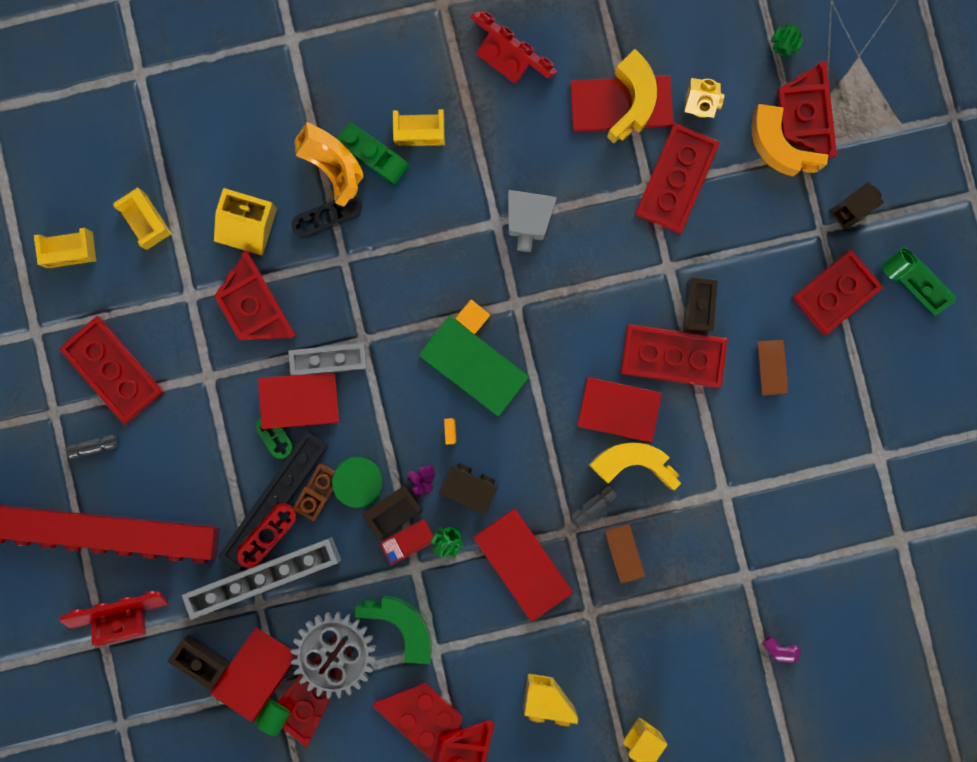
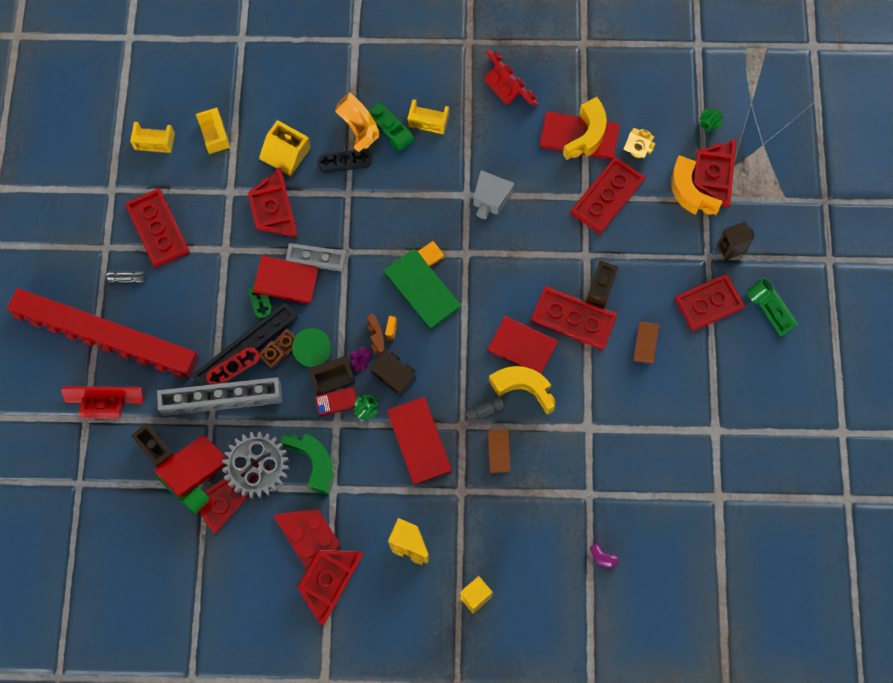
camera: 15 degrees right, 15 degrees down
(438, 452) = (377, 339): none -> dark orange slope

